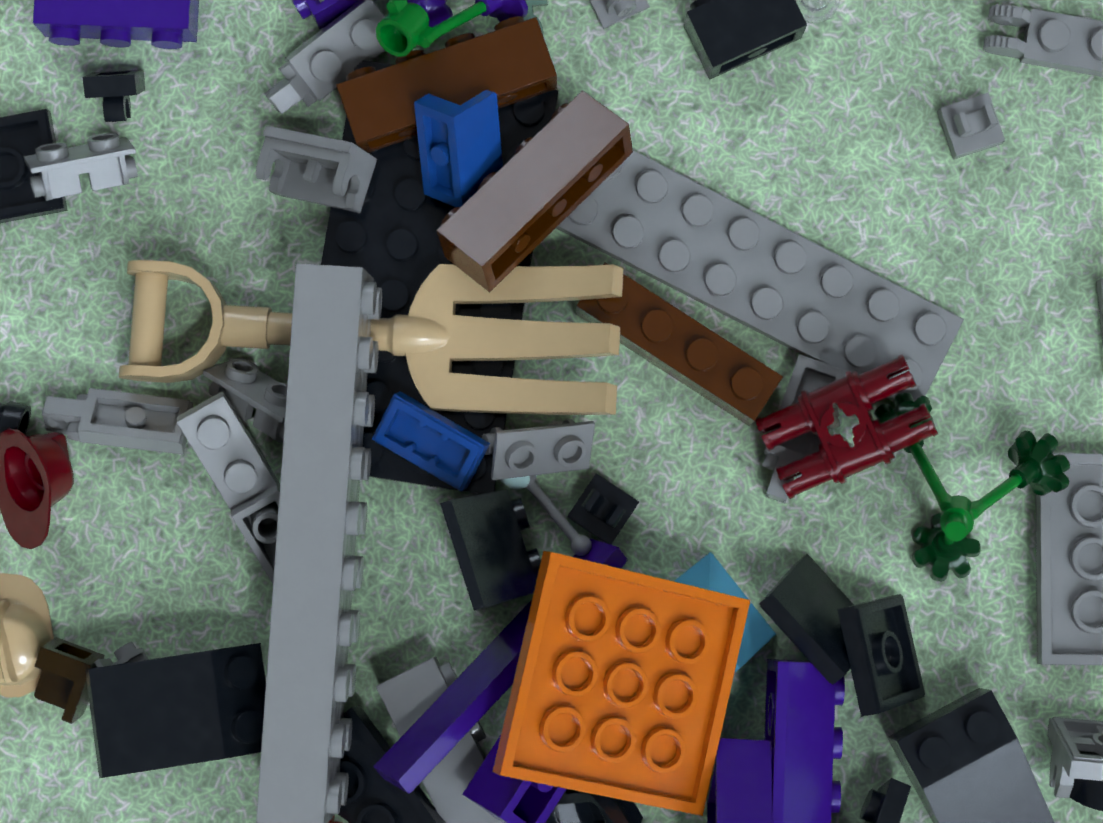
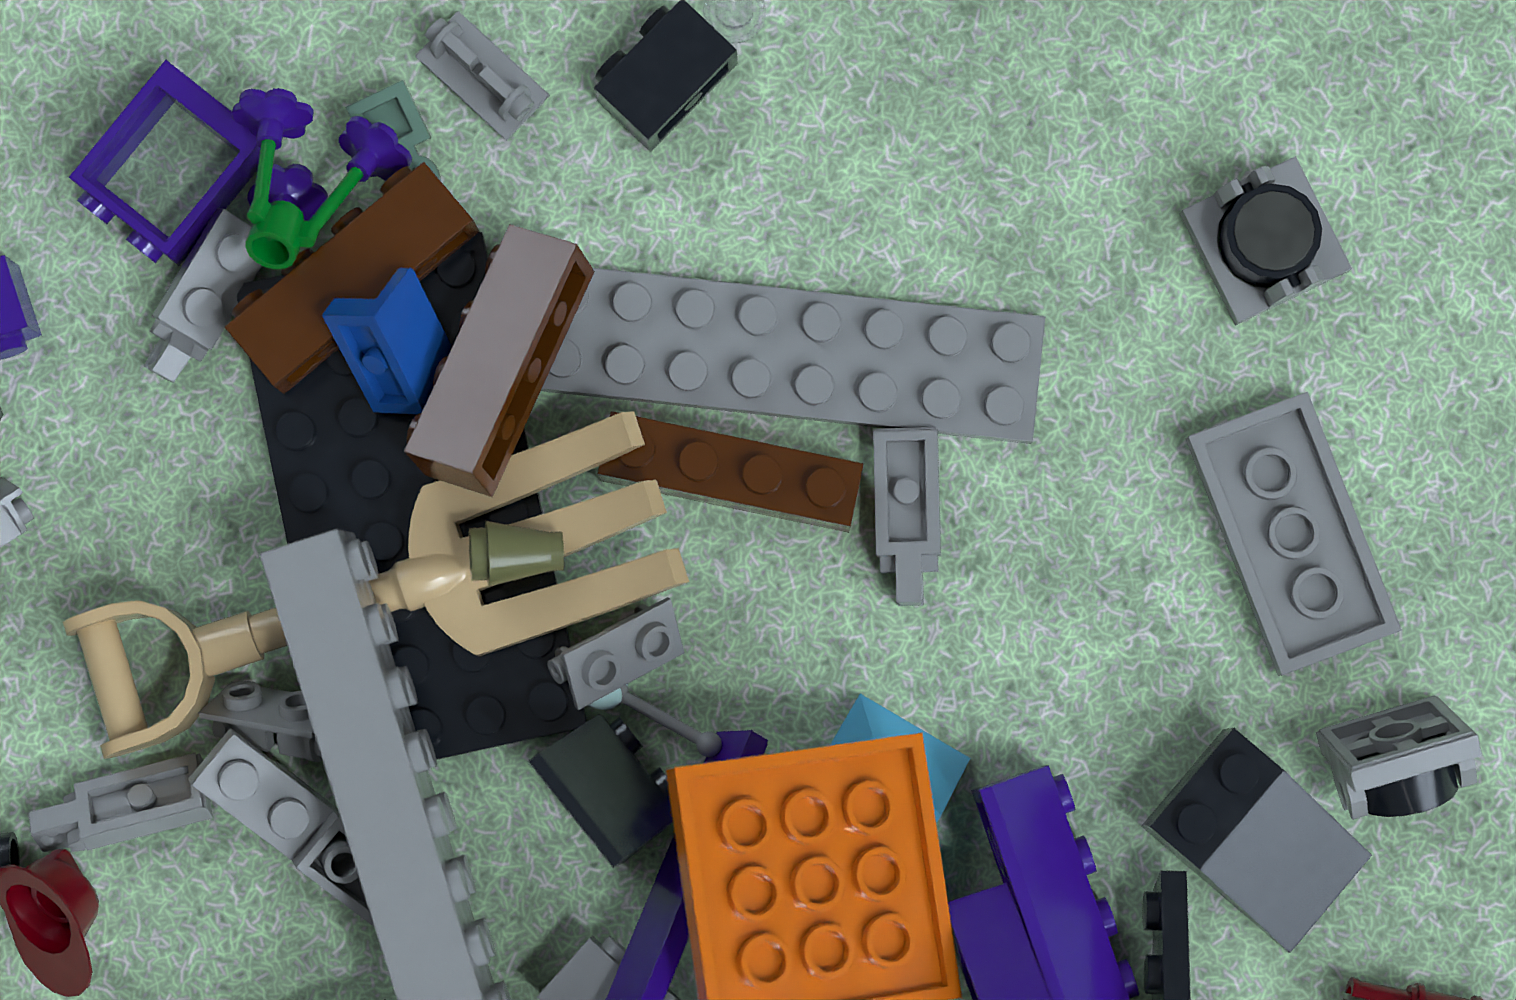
camera: 20 degrees left, 0 degrees up
(315, 168) = (237, 431): light grey hinge -> none
(430, 441) = (491, 692): blue plate -> none
(489, 340) = (513, 552): none -> olive cone
(603, 509) = (718, 693): black tile -> none
(806, 611) = (1010, 722): black tile -> none
(819, 413) = (990, 496): dark red pin -> none
(881, 654) = (1096, 735): black tile -> none
(946, 542) = (1123, 578): dark green plant -> none
(970, 126) = (969, 91): light grey tile -> none

